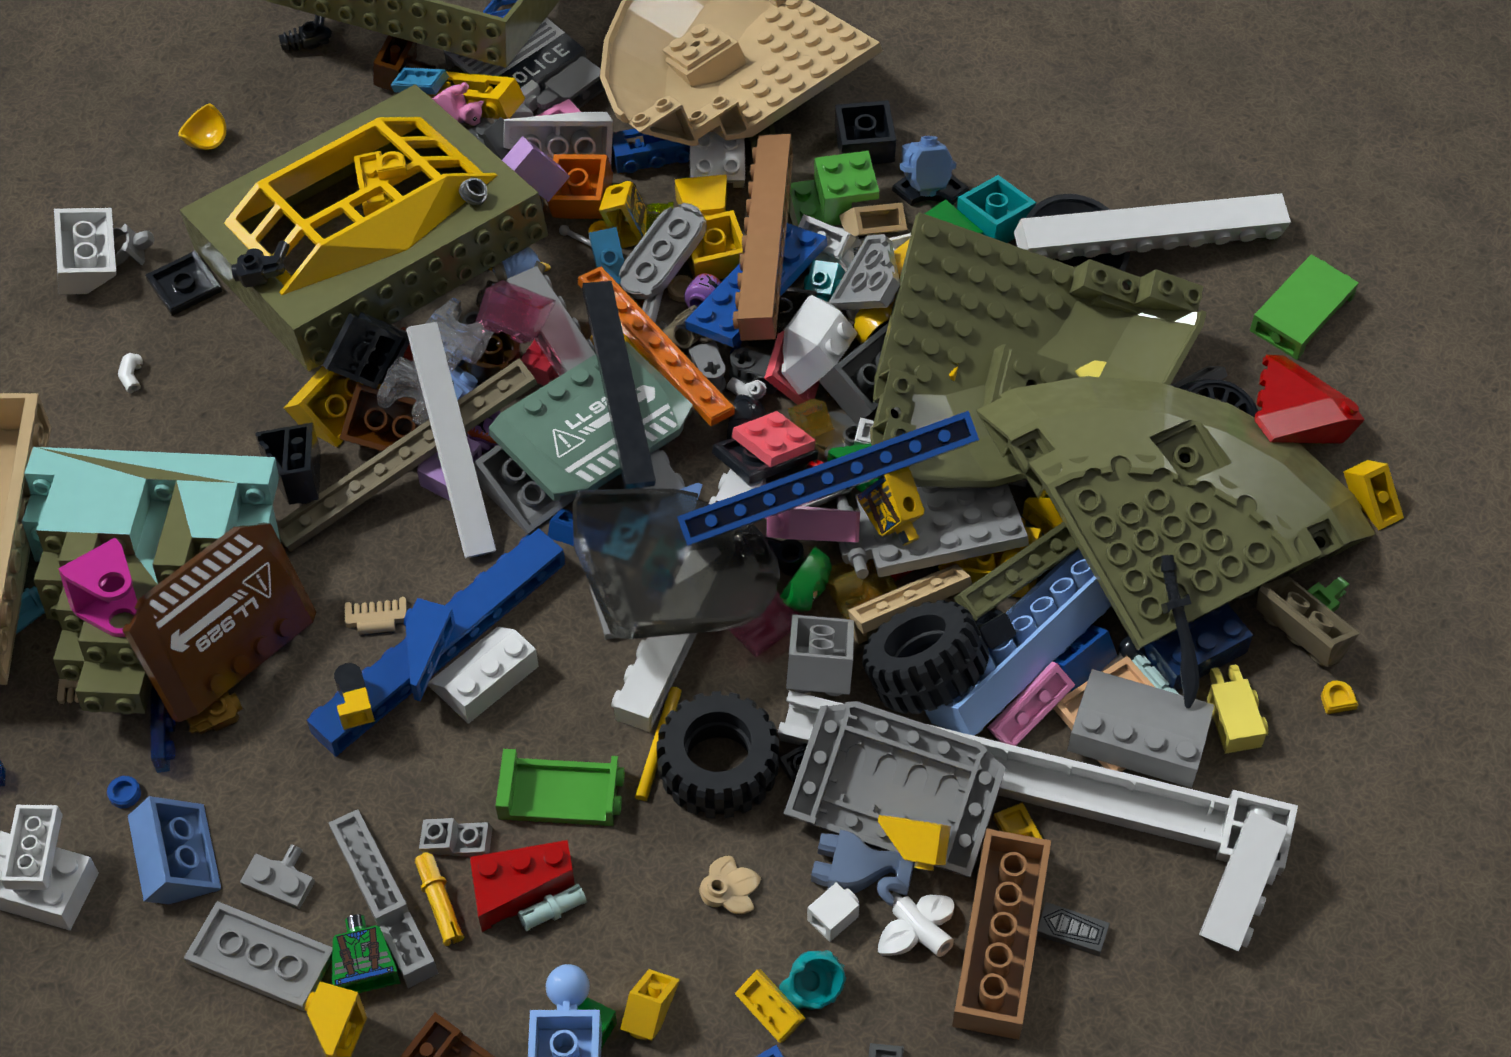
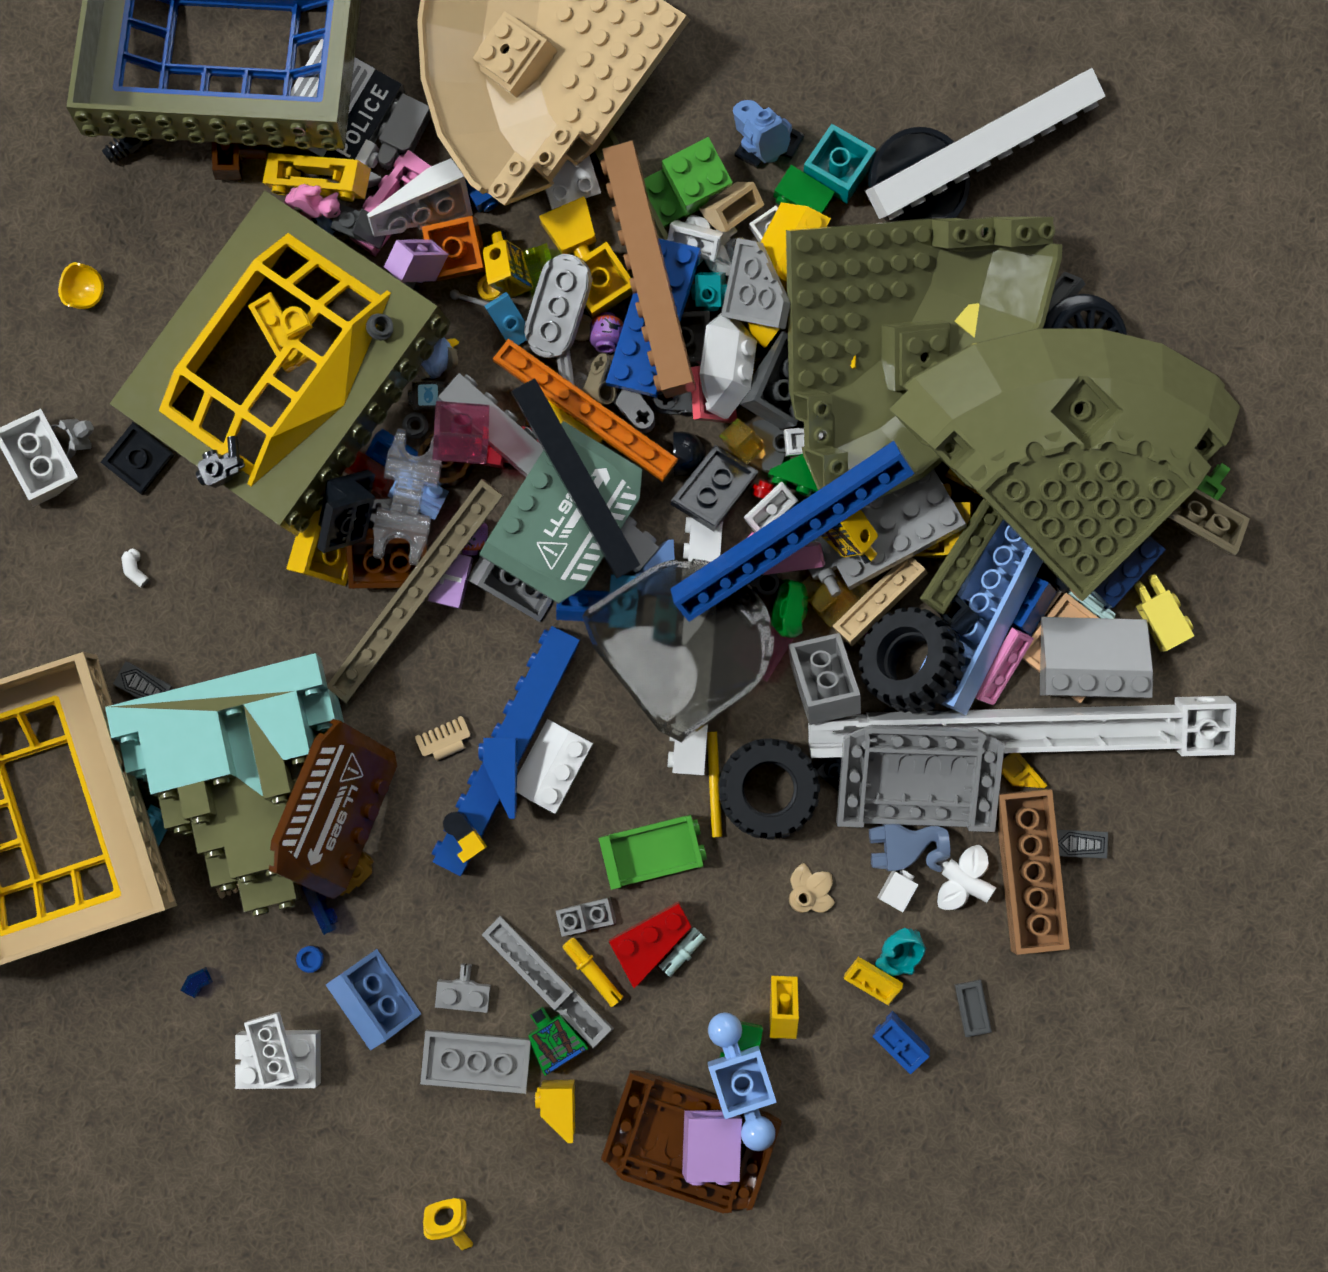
camera: 20 degrees left, 30 degrees up
(100, 586) = (233, 831): dark pink hose -> none
(296, 459) = (321, 625): black wedge -> none
(426, 79) = (263, 176): dark azure plate -> none
(451, 440) = (449, 572): white tile -> none
(754, 389) = (680, 422): white arm -> none
(773, 438) = (719, 476): coral plate -> none
(866, 128) = (694, 105): black brick -> none
(918, 840) = (948, 820): yellow slope -> none
(1189, 666) = (1106, 561): black sword -> none
(1244, 881) = (1207, 777): white brick -> none
(1301, 406) = (1156, 299): red slope -> none
(1303, 306) = (1135, 183): bright green panel -> none
(1338, 697) = (1239, 574): yellow tile -> none
(1375, 492) = (1232, 366): yellow slope -> none

